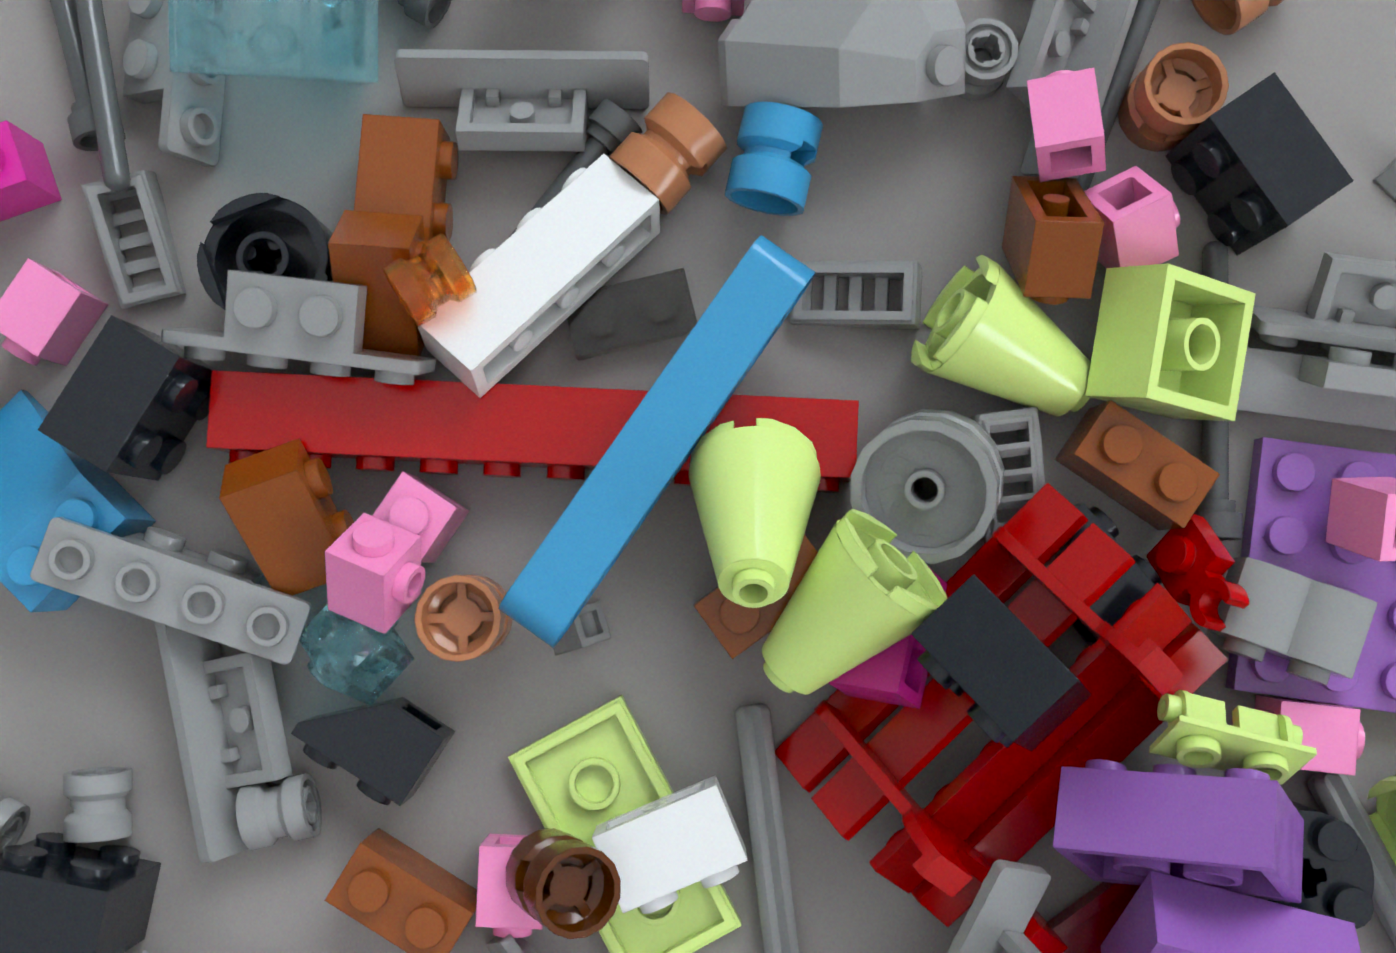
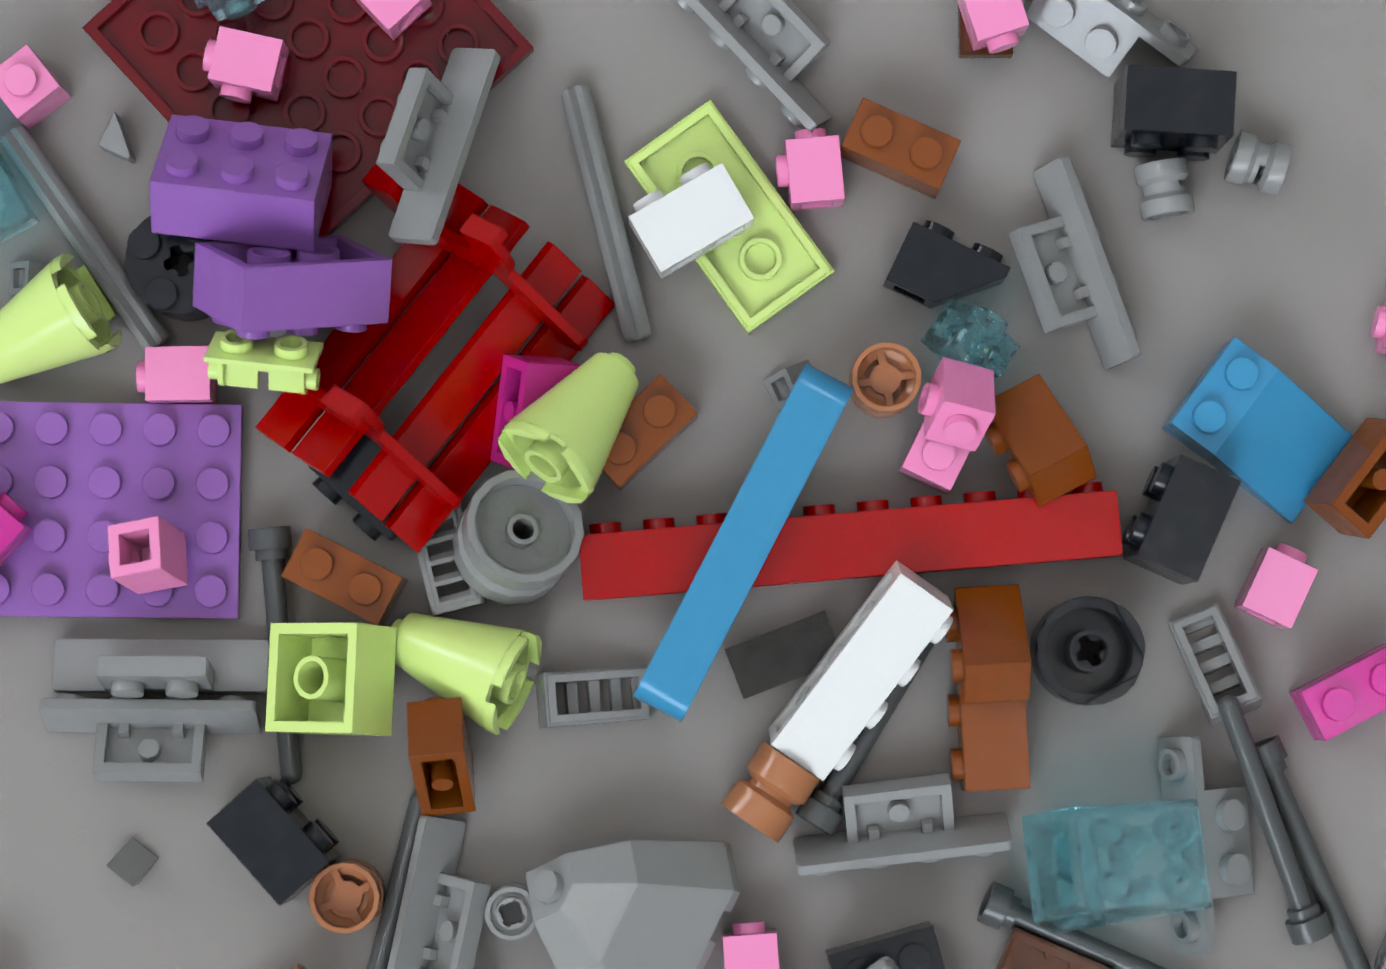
camera: 170 degrees right, 0 degrees up
(173, 586) = (1121, 372): light grey bracket -> none
(278, 811) = (1014, 202): light grey wheel -> none
(297, 320) = (1051, 599): light grey bracket -> none
(429, 279) = (953, 632): clear orange wheel -> none
(563, 883) = (772, 181): reddish brown wheel -> none
(754, 505) = (659, 496): yellowish green cone -> none
(776, 148) = (679, 799): dark azure wheel -> none
(1000, 664) = (452, 392): black brick -> none
(1067, 124) = (440, 851): bright pink brick -> none
(1137, 220) = (371, 782): bright pink brick -> none
(1192, 571) = (292, 497): red plate -> none
(1297, 620) = (210, 465): light grey brick -> none

